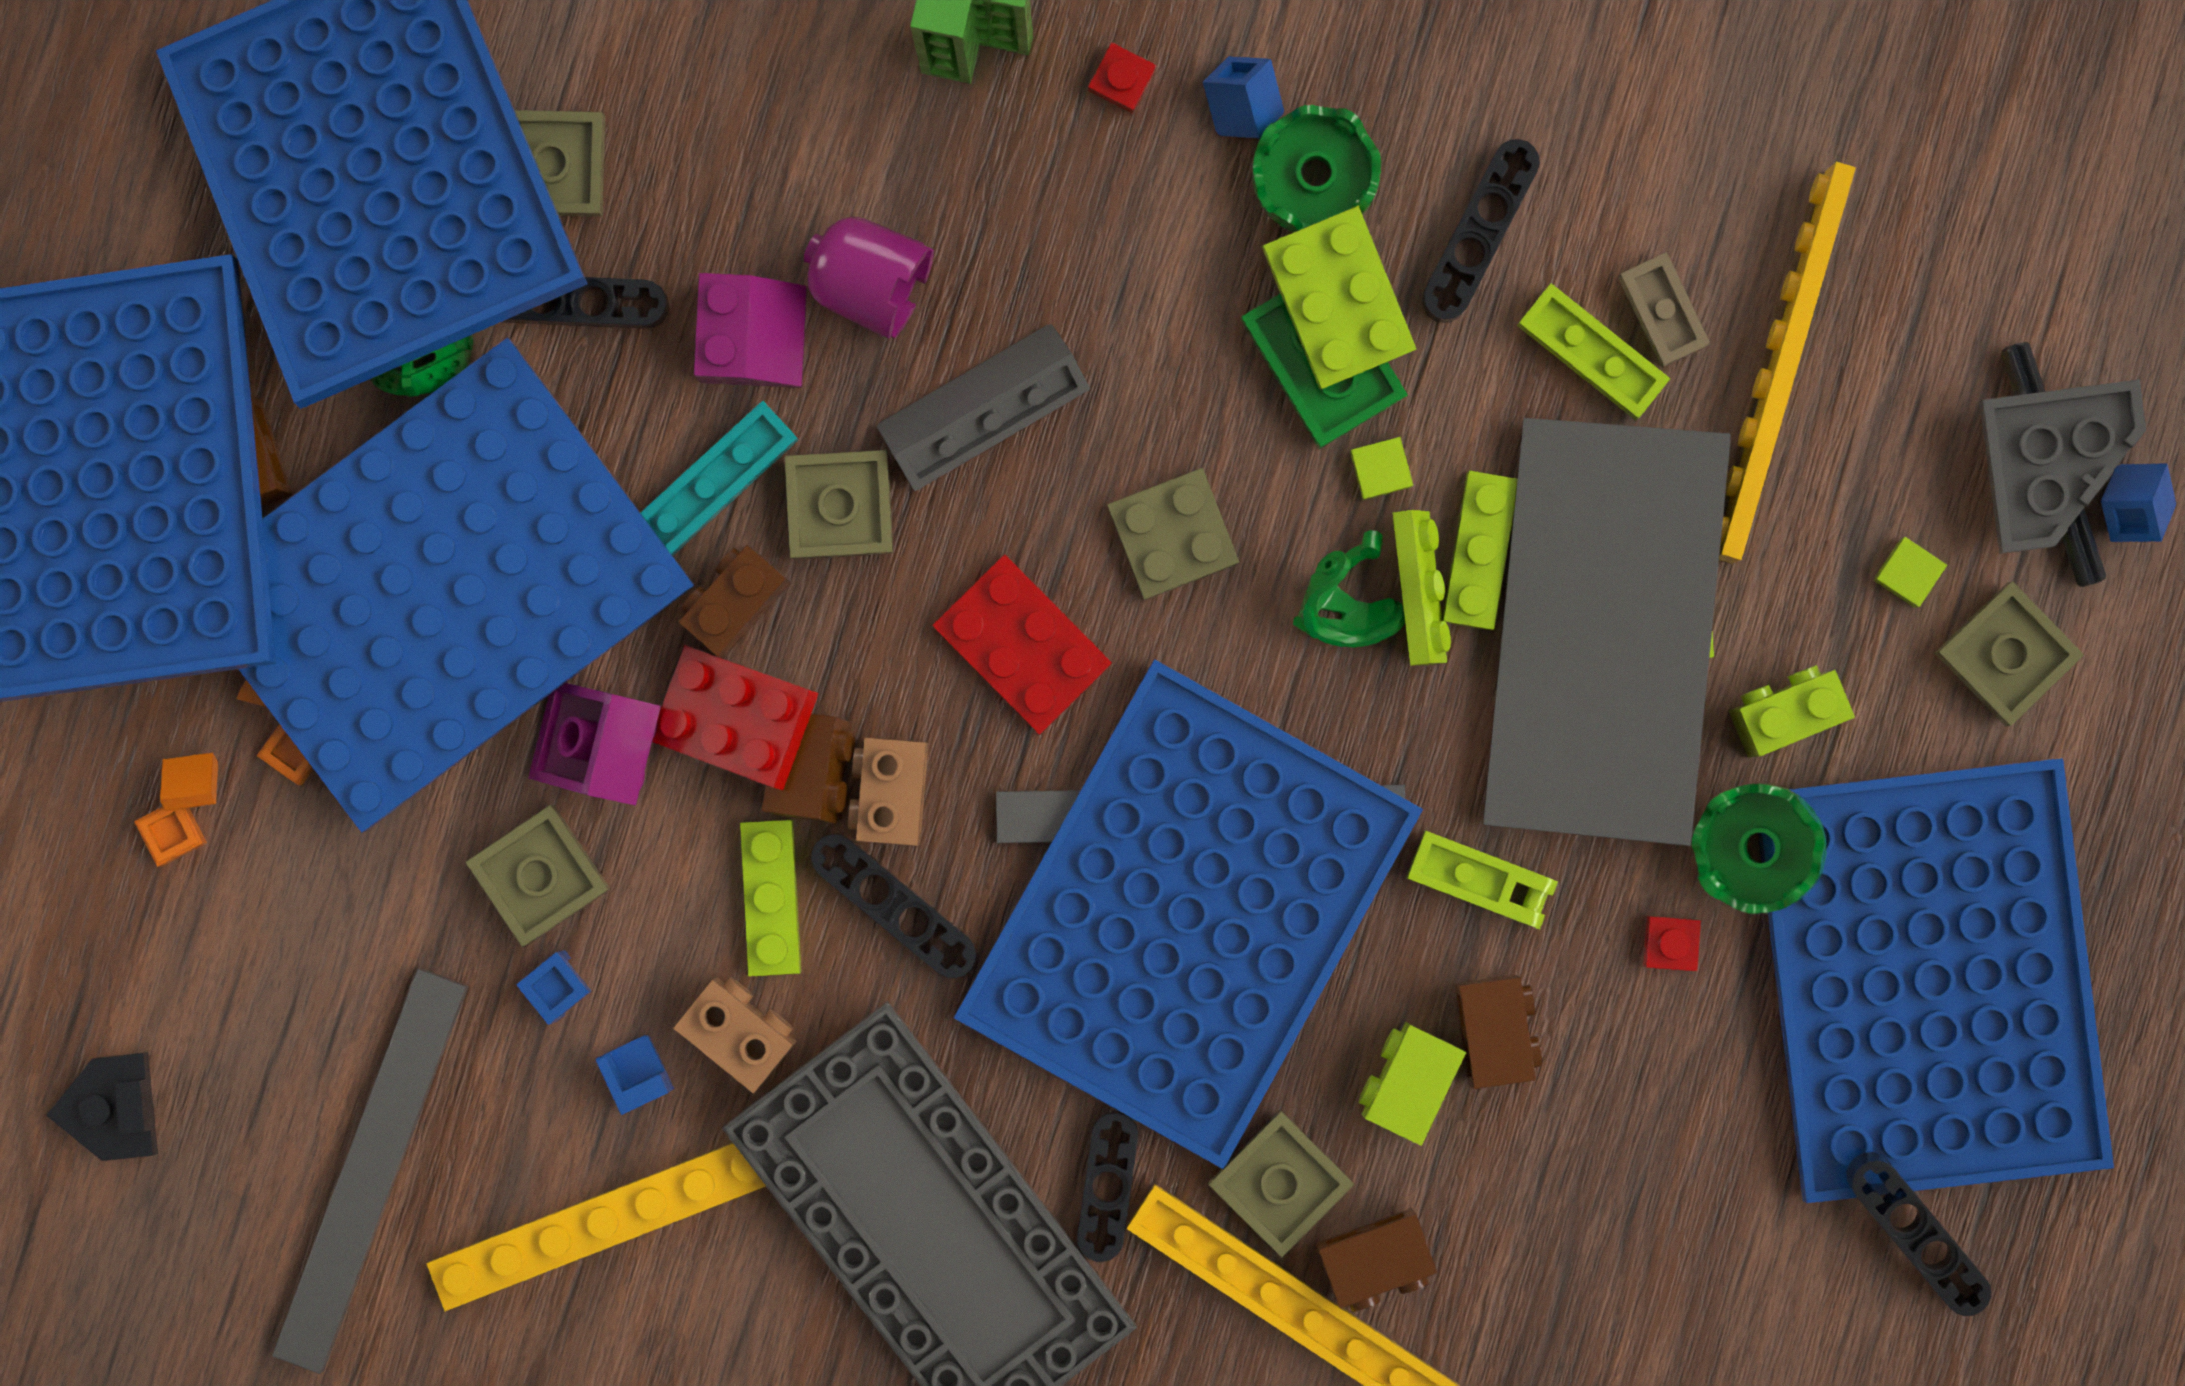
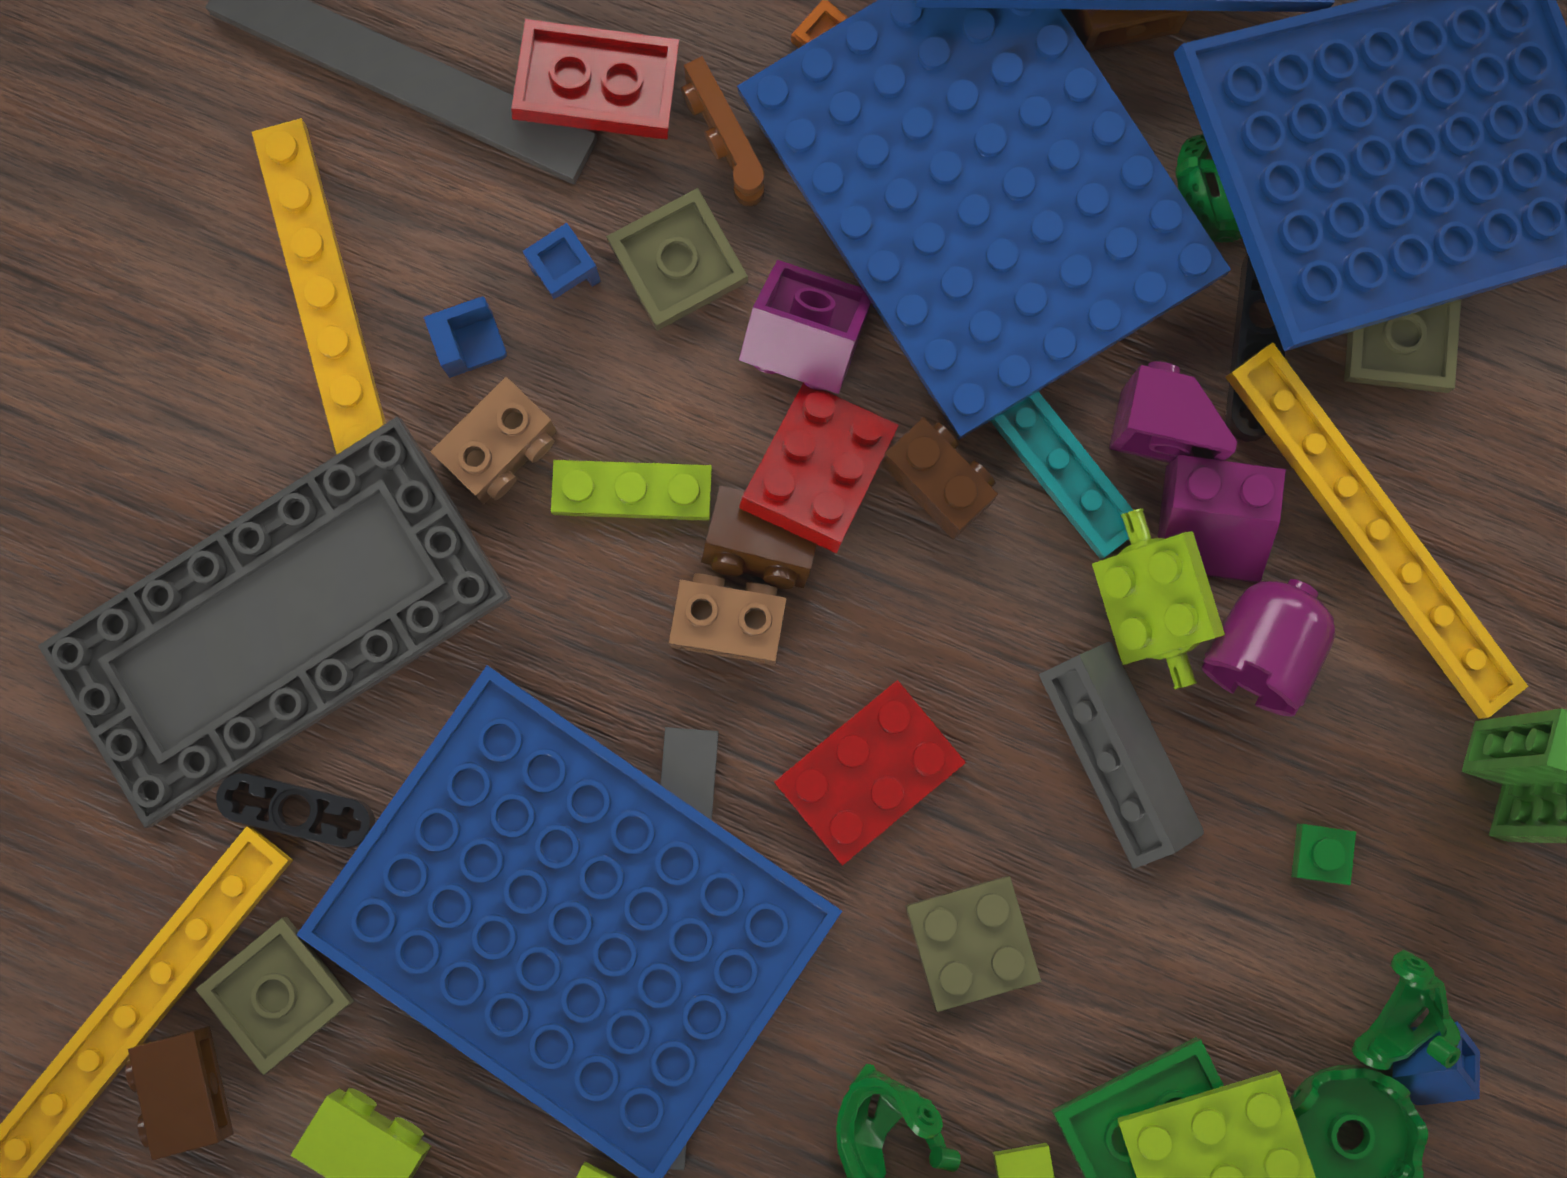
camera: 90 degrees right, 5 degrees down
(363, 973) = (595, 79): none -> plate
(407, 841) = (724, 132): none -> dark orange plate
(658, 387) = (1168, 417): none -> magenta slope
(748, 181) = (1376, 532): none -> yellow plate
(833, 384) = (1158, 598): none -> lime plate
(839, 504) = (1031, 594): olive plate -> none
(889, 911) = (603, 608): black beam -> none
(1060, 210) = (1323, 854): none -> green plate
(1122, 78) = (1461, 933): red plate -> none
(1220, 139) = (1392, 1037): none -> green helmet

